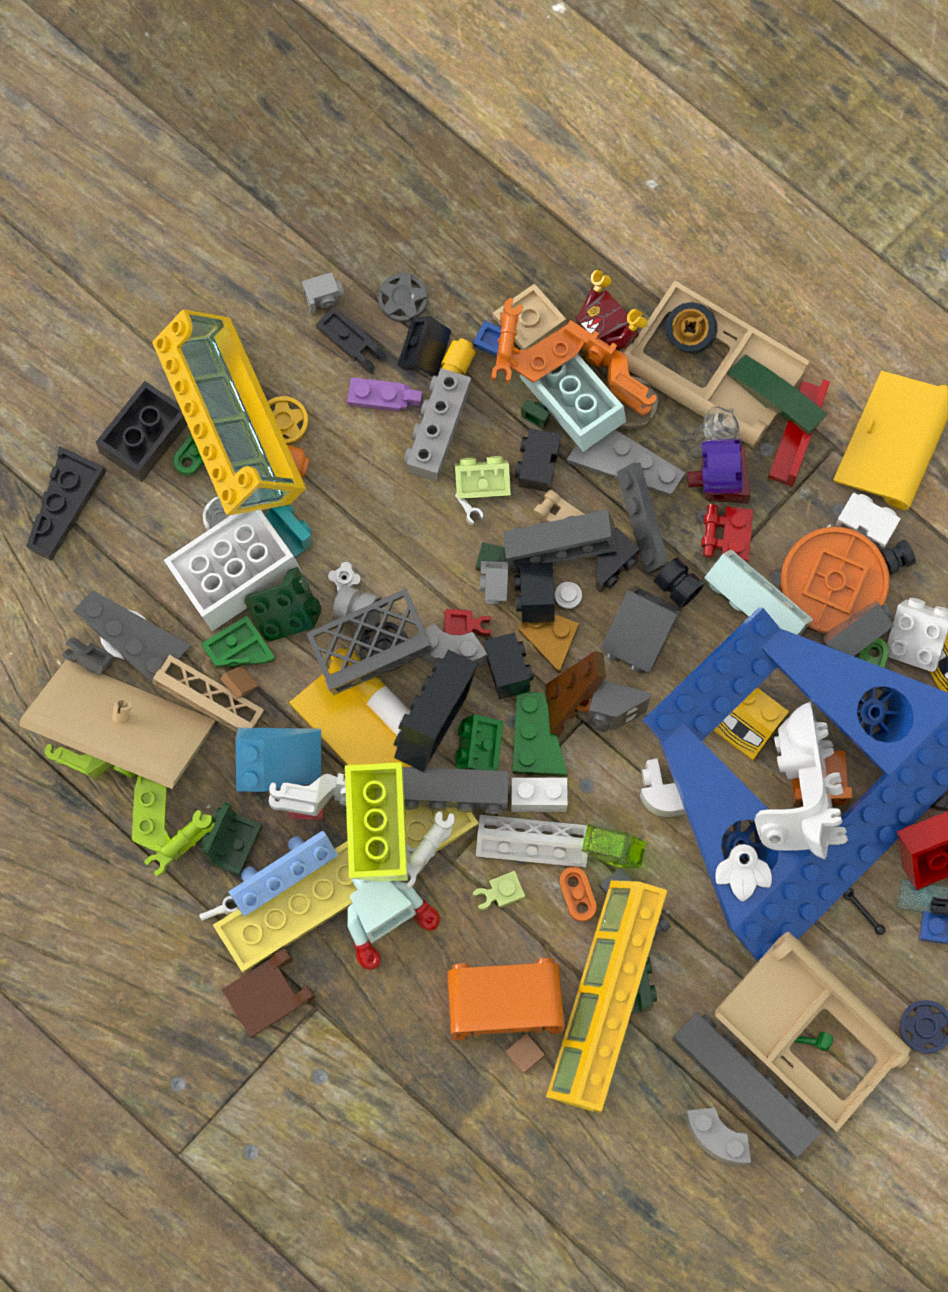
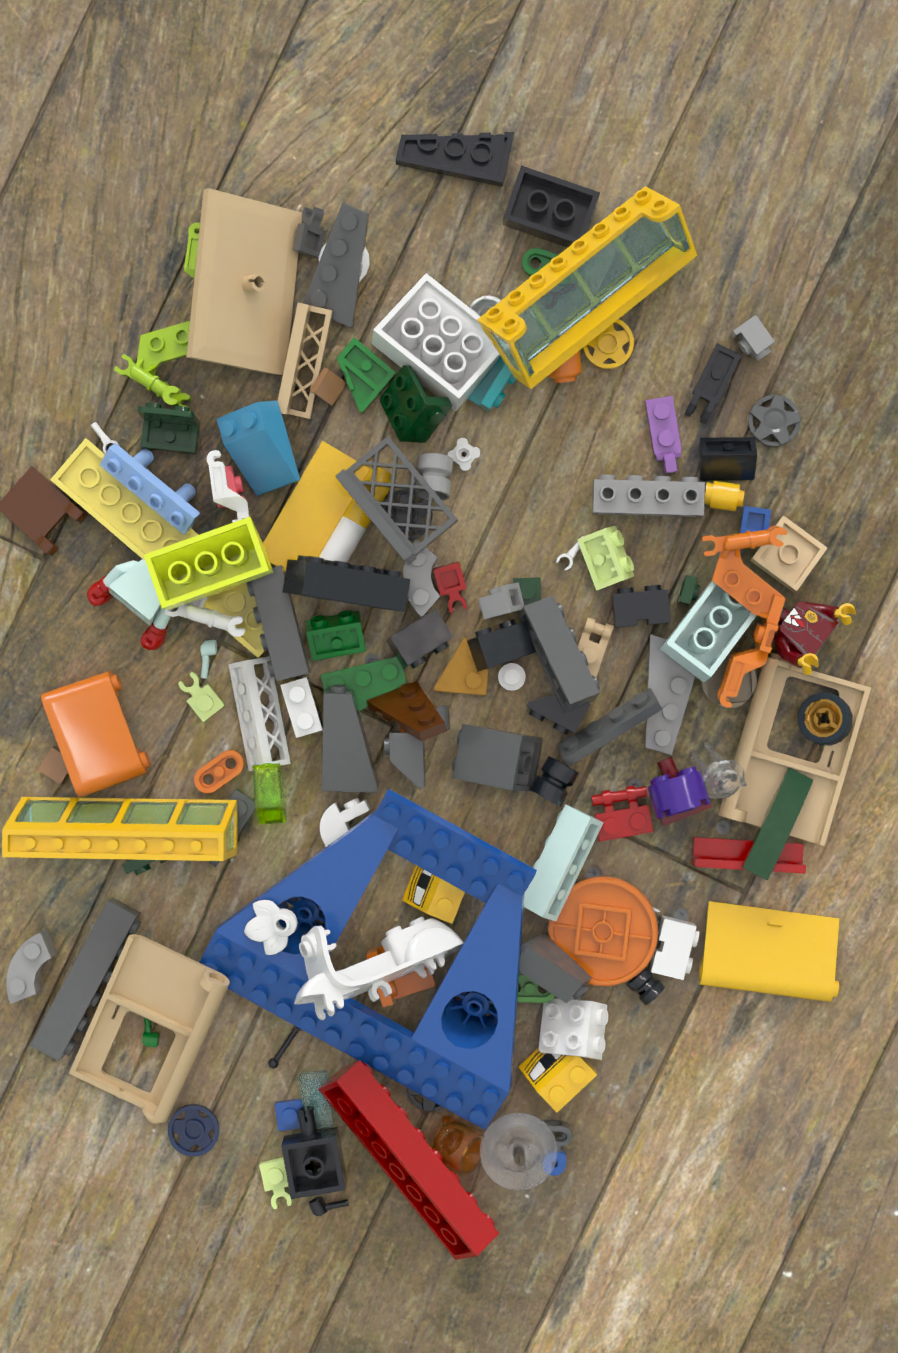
camera: 70 degrees right, 15 degrees up
(454, 871) = (207, 648): none -> light aqua hand
(591, 765) = (346, 752): none -> dark grey slope

